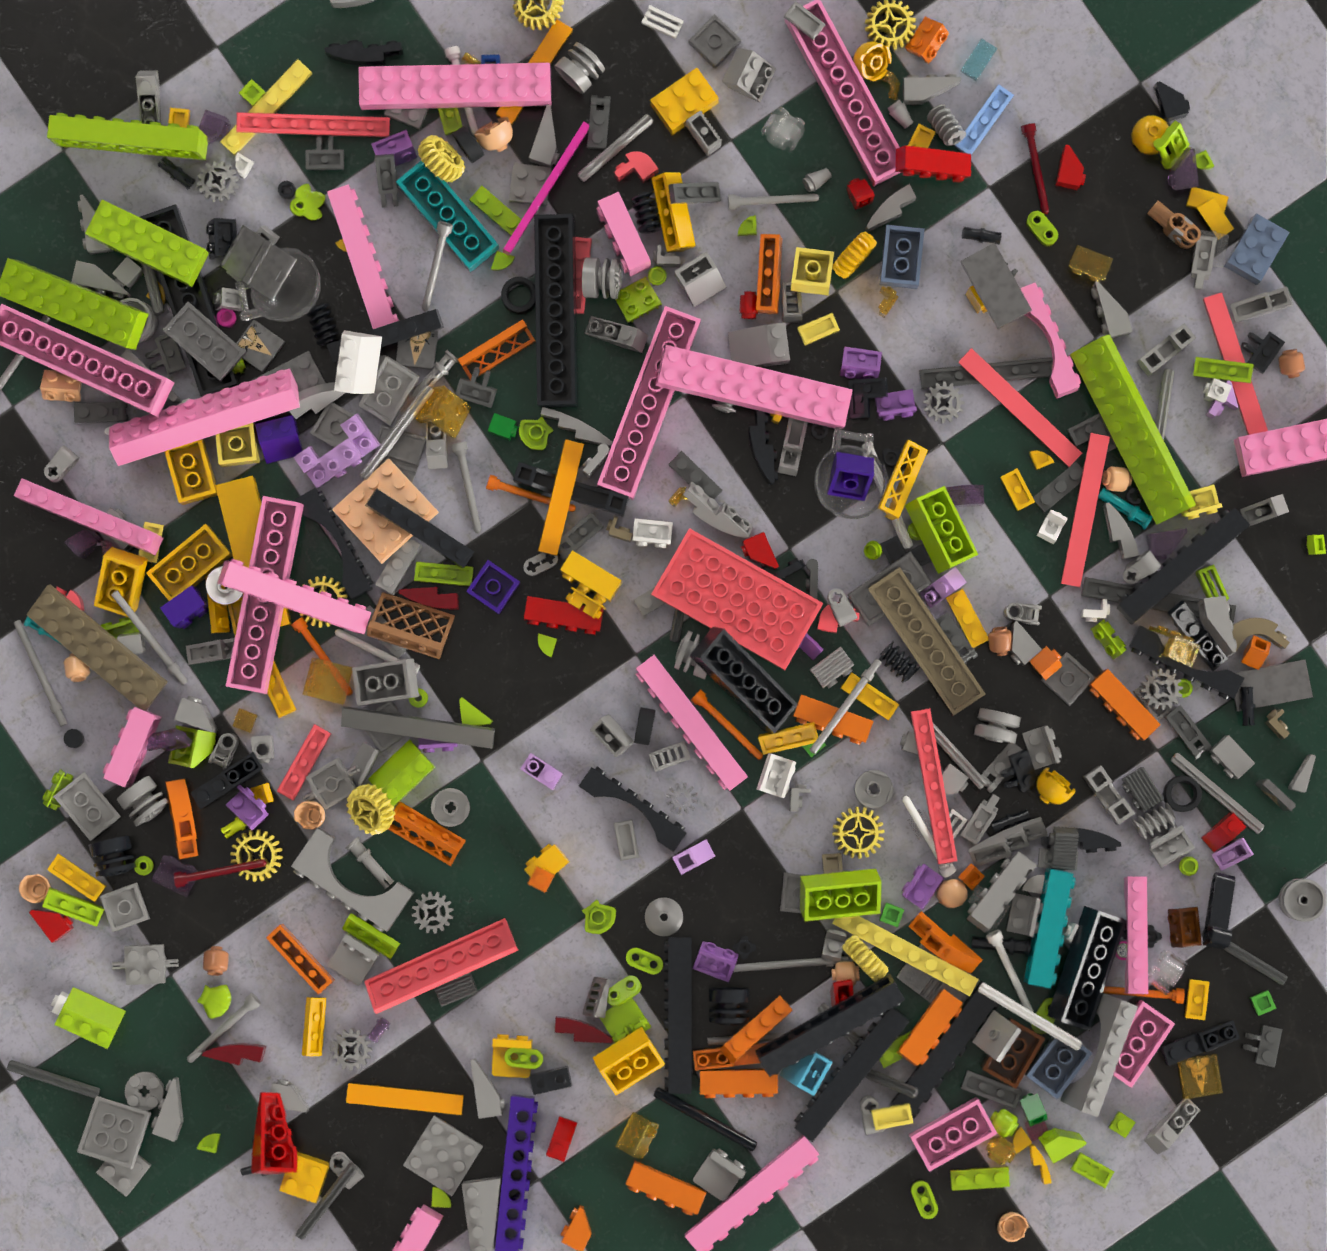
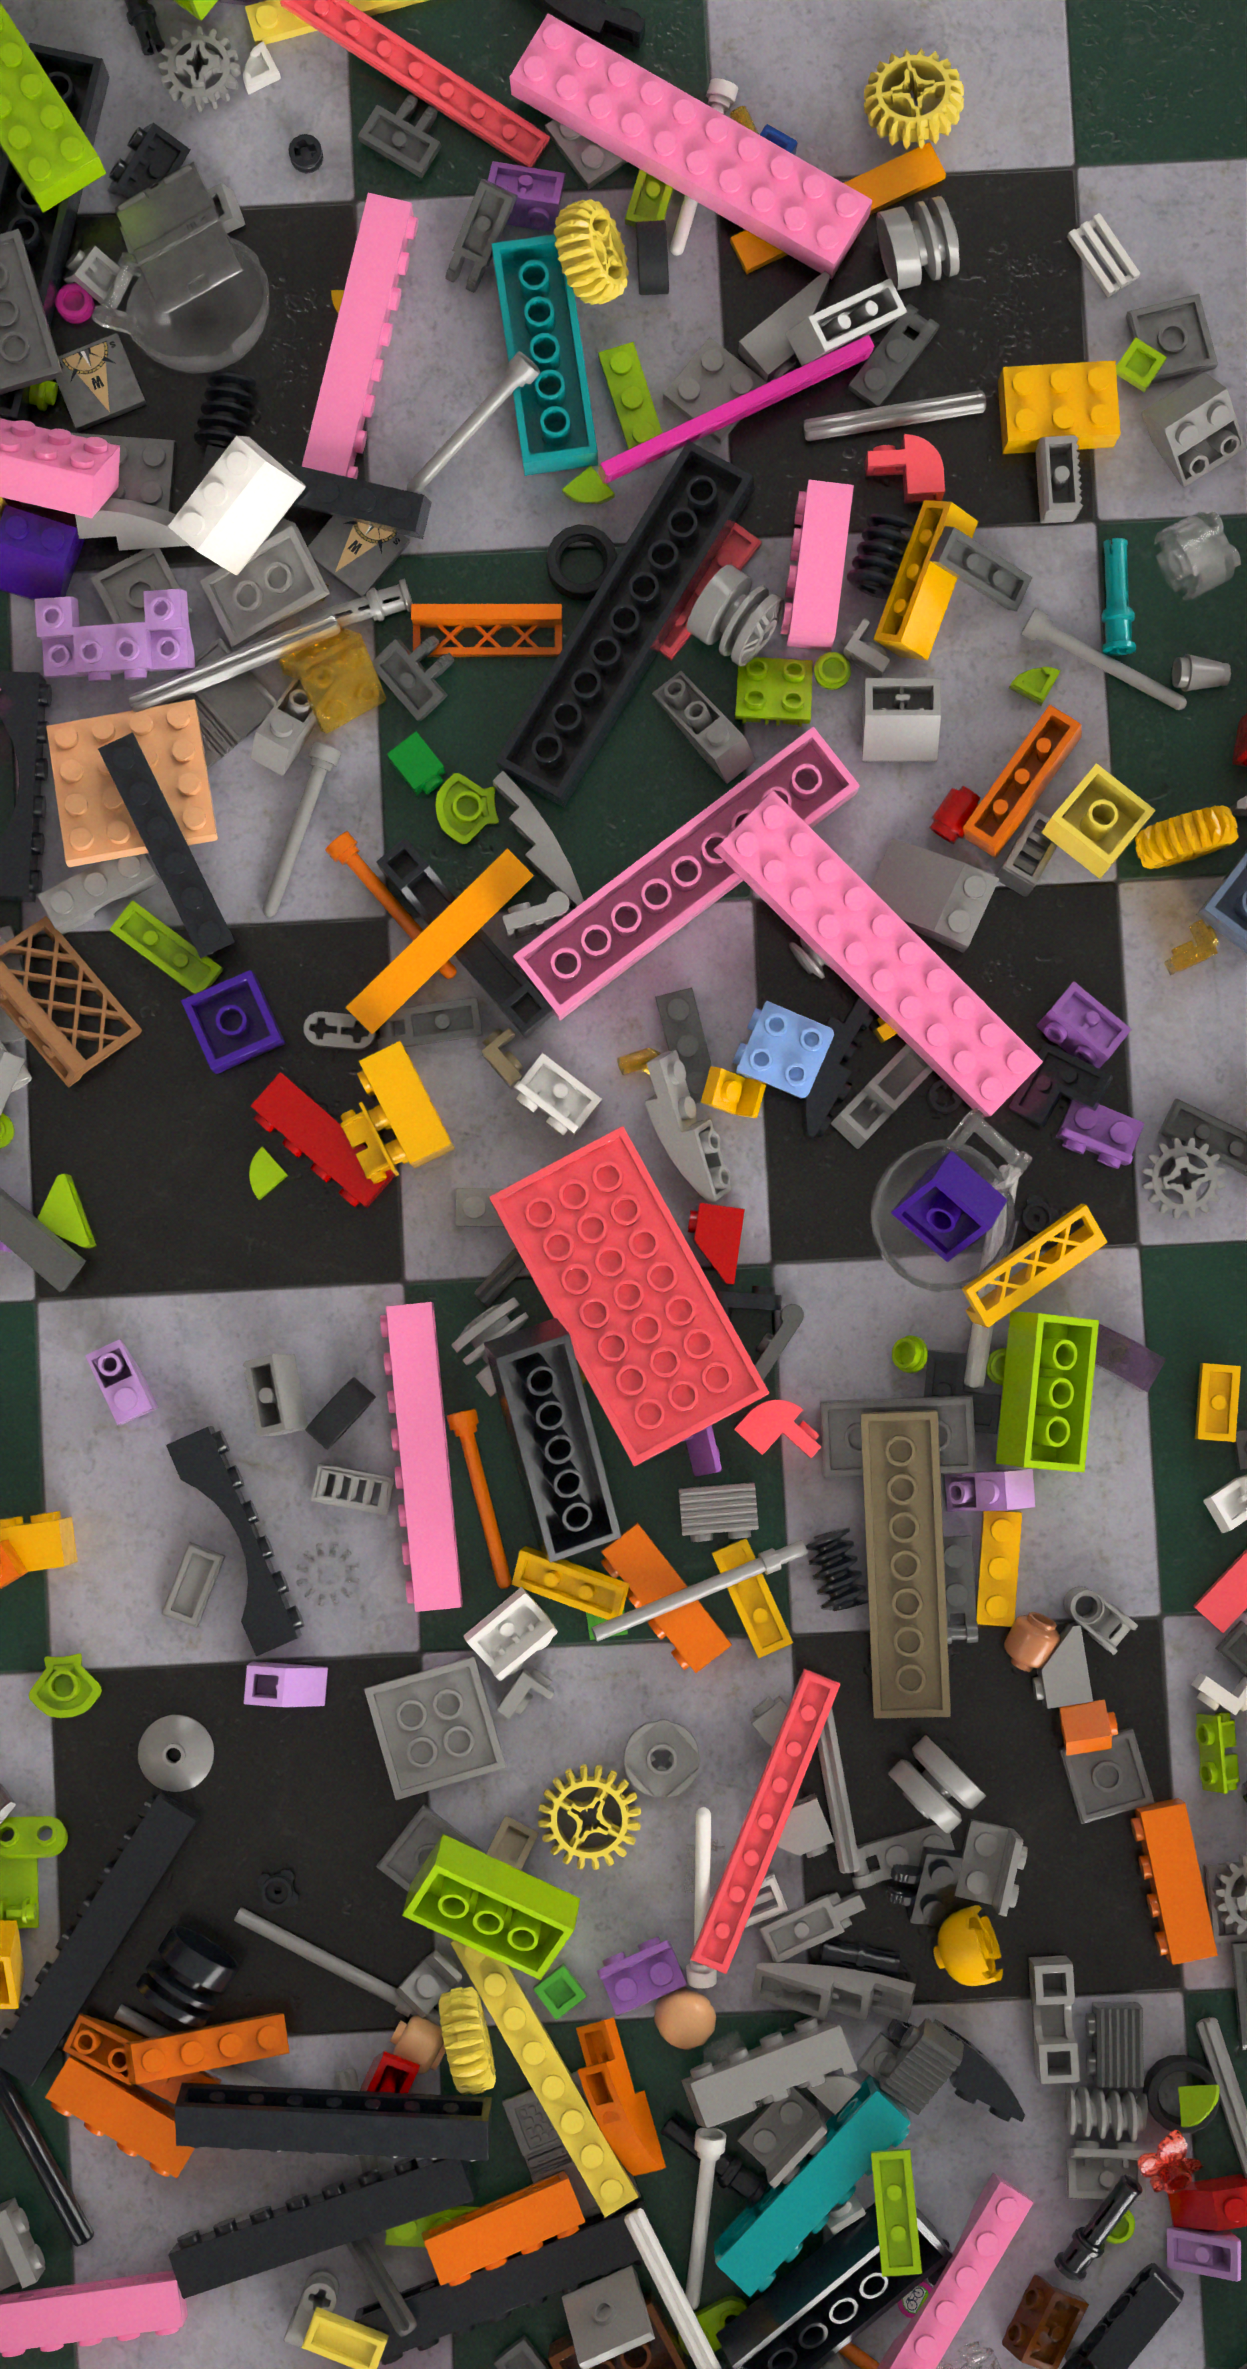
camera: 30 degrees right, 0 degrees up
(310, 201) = (331, 198): lime plate -> none
(431, 598) = (120, 976): dark red slope -> none
(495, 135) = (707, 271): light nougat cylinder -> none
(570, 121) = (846, 322): none -> light grey brick
(644, 960) = (92, 1810): lime plate -> none
(708, 61) = (1140, 364): none -> lime plate
(715, 961) = (215, 1884): medium lavender bracket -> none
(727, 485) = (733, 1093): none -> yellow bracket
(738, 453) = (783, 1049): none -> light blue bracket
(765, 175) = (1117, 613): none -> teal pin
(768, 836) = (435, 1727): none -> light grey plate
(808, 1072) = (252, 2178): medium azure slope -> none
(818, 329) = (1047, 925): light yellow tile -> none
(843, 610) = (795, 1424): light grey piece -> none
(971, 876) = (734, 2011): orange plate -> none
(1089, 913) = (896, 2212): none -> lime plate
(1155, 936) = (985, 2309): black plate -> none
(1181, 878) = (1089, 2240): none -> black pin
(1190, 792) = (1197, 2103): none -> lime tile
(1194, 825) = (1169, 2166): none -> clear red animal

